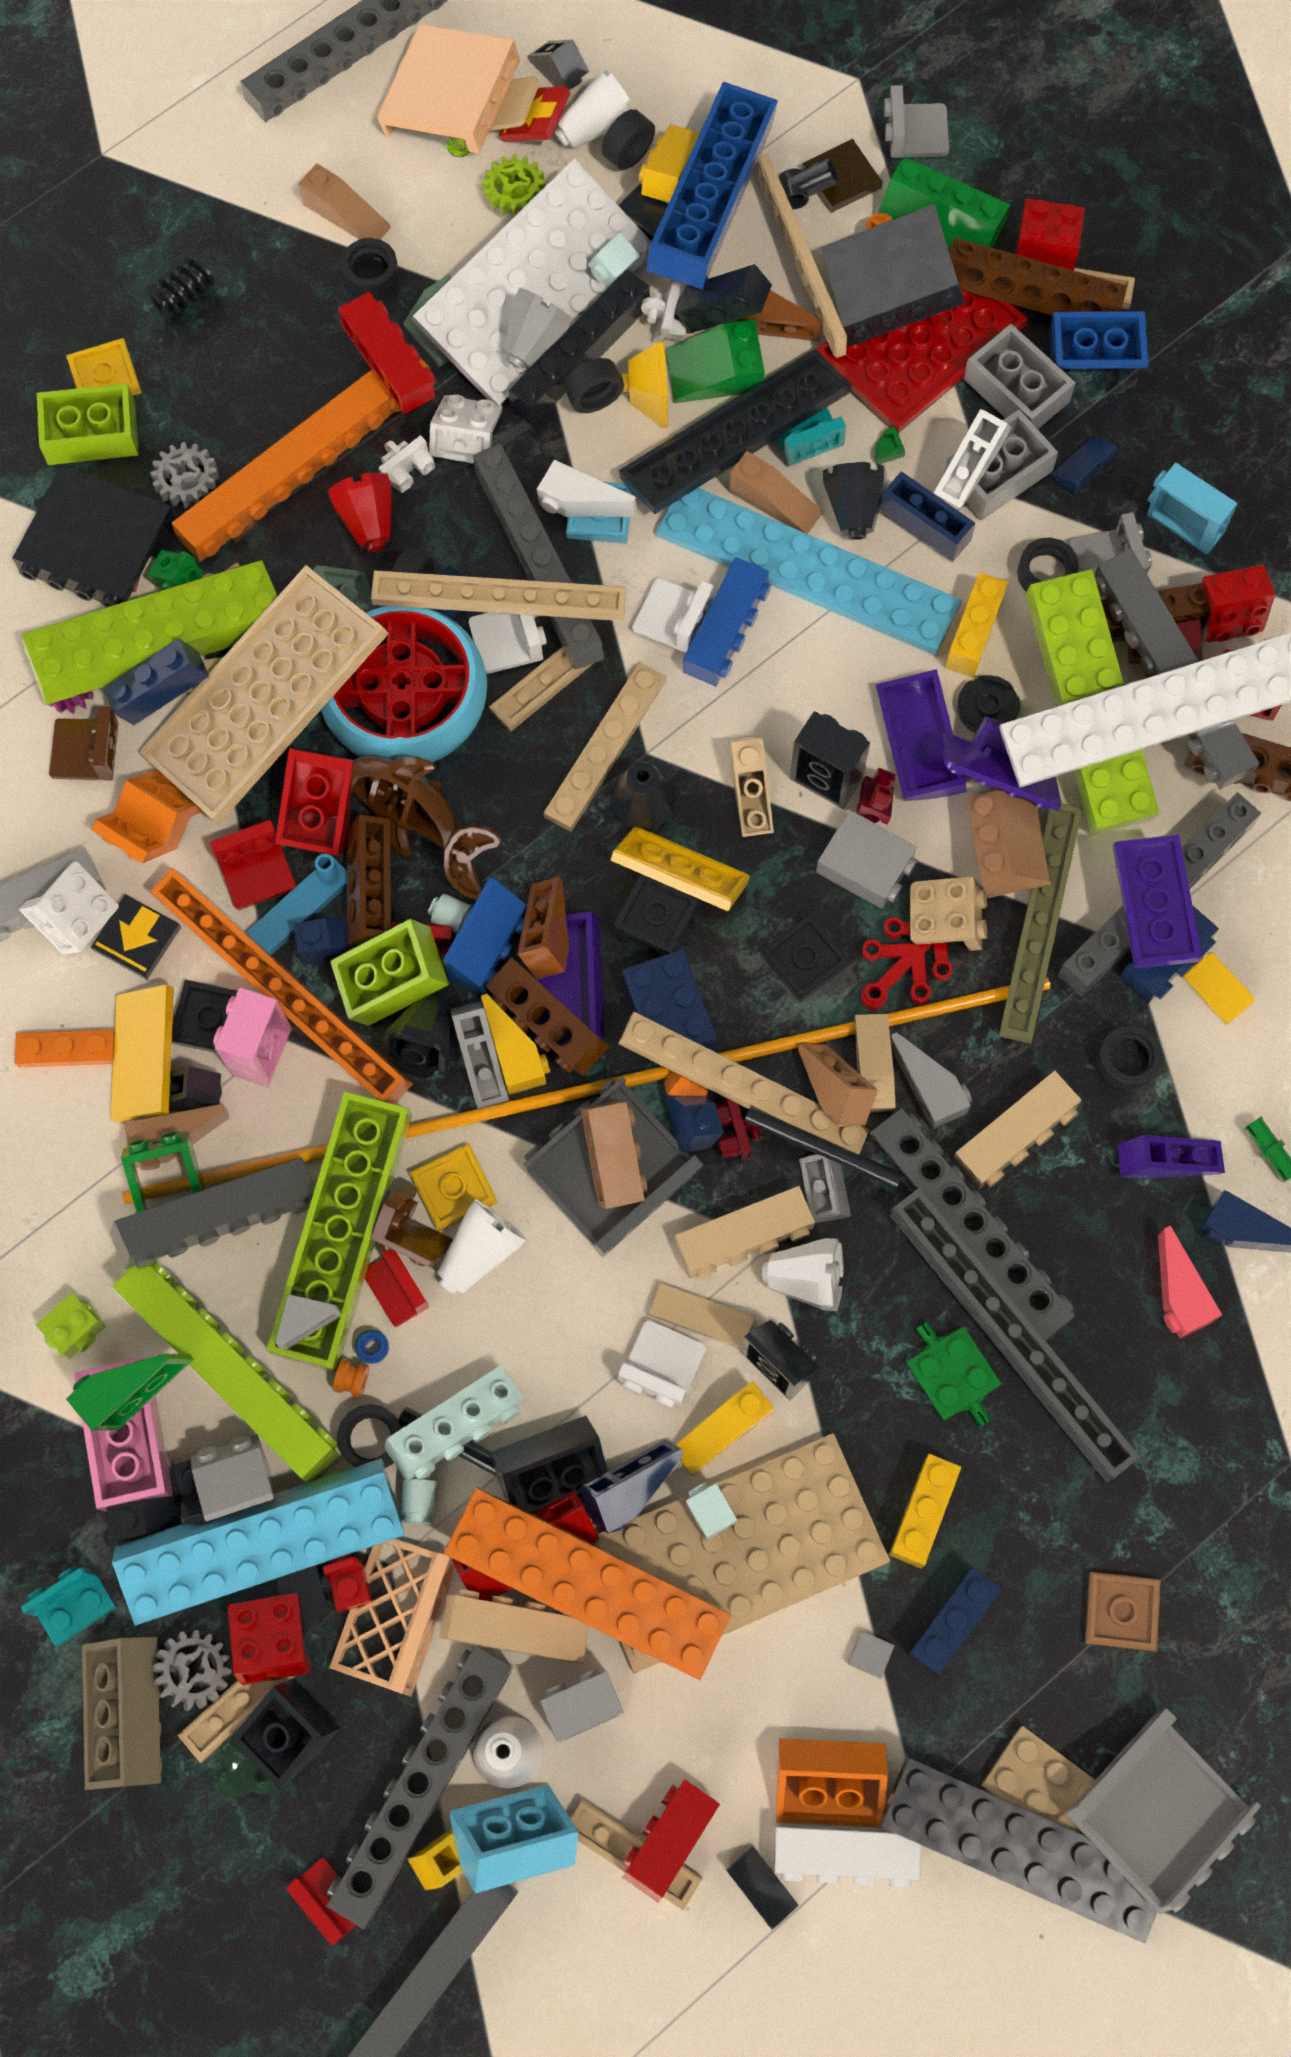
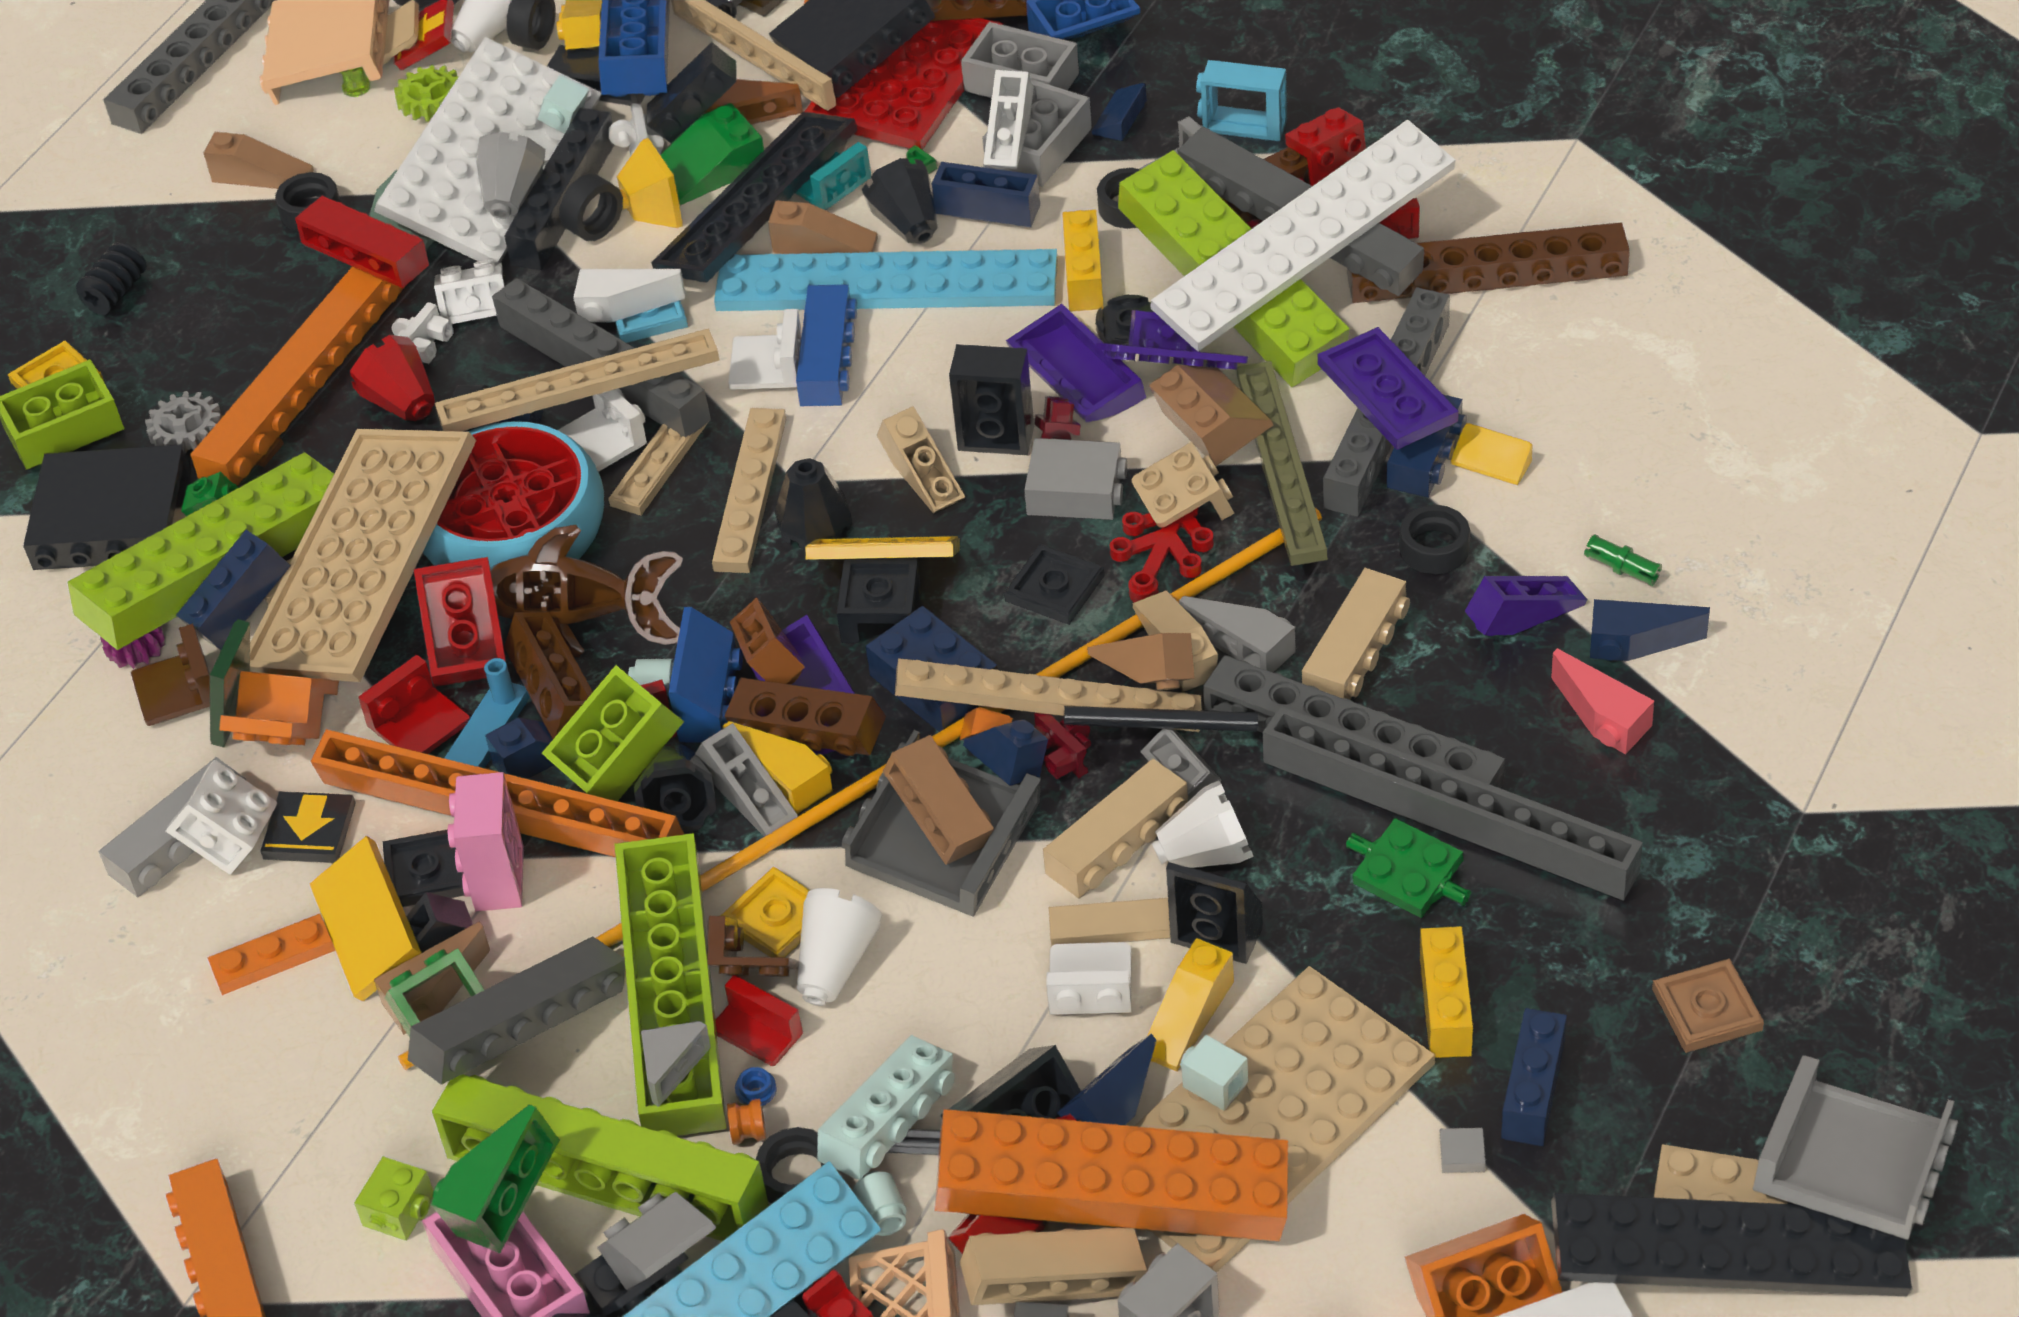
camera: 20 degrees left, 25 degrees down
(109, 789) = (225, 678): none -> dark green tile

